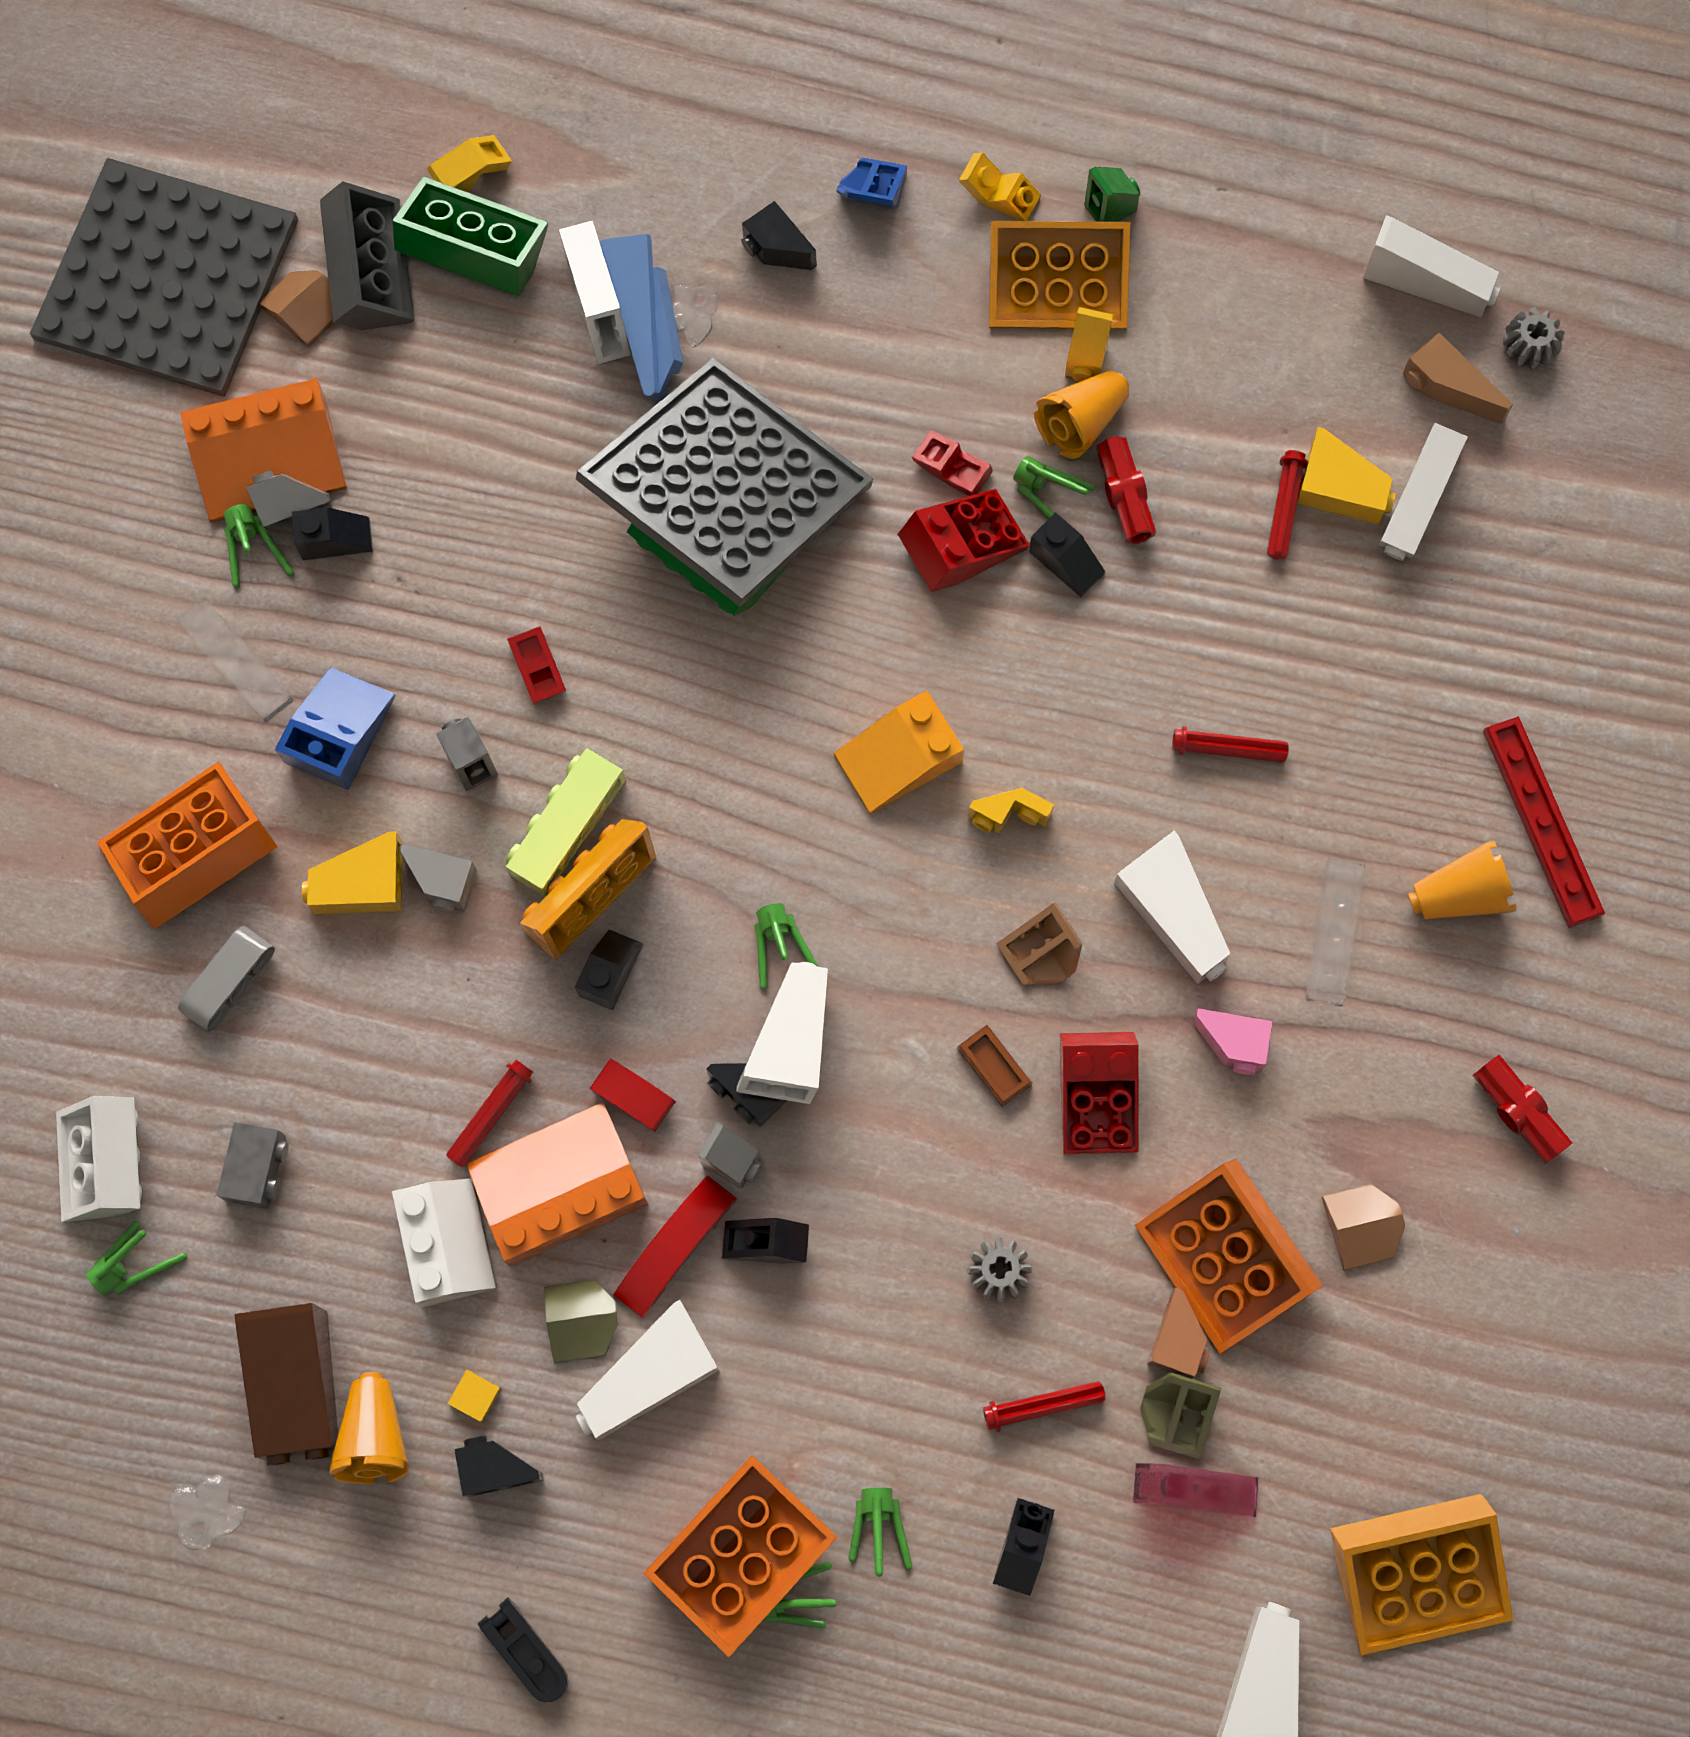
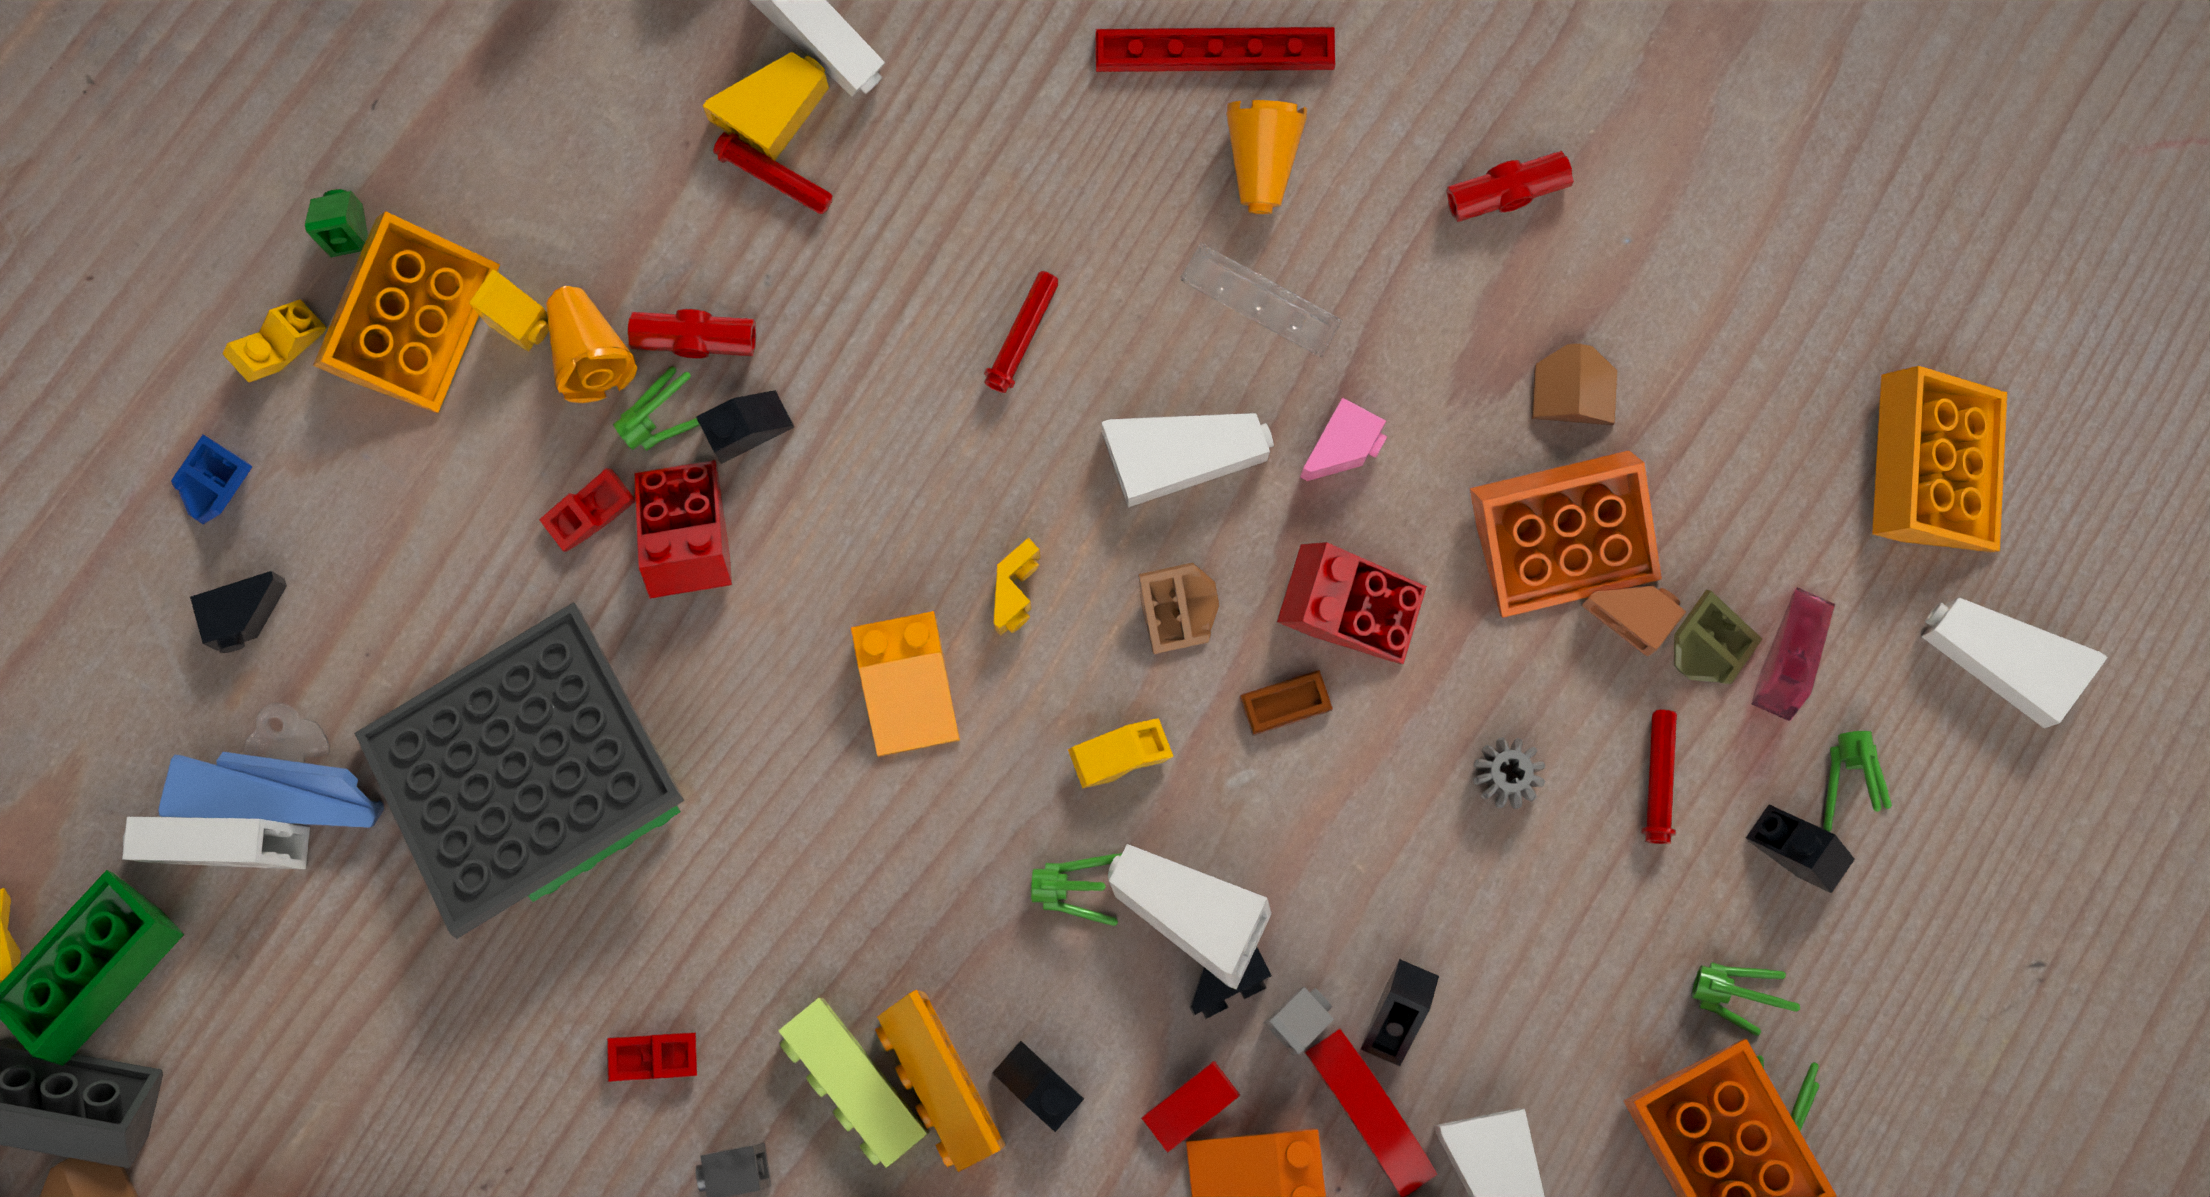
camera: 75 degrees left, 5 degrees up
(904, 941) = (1119, 752): none -> yellow slope
(1127, 1573) = (1857, 752): none -> bright green plant

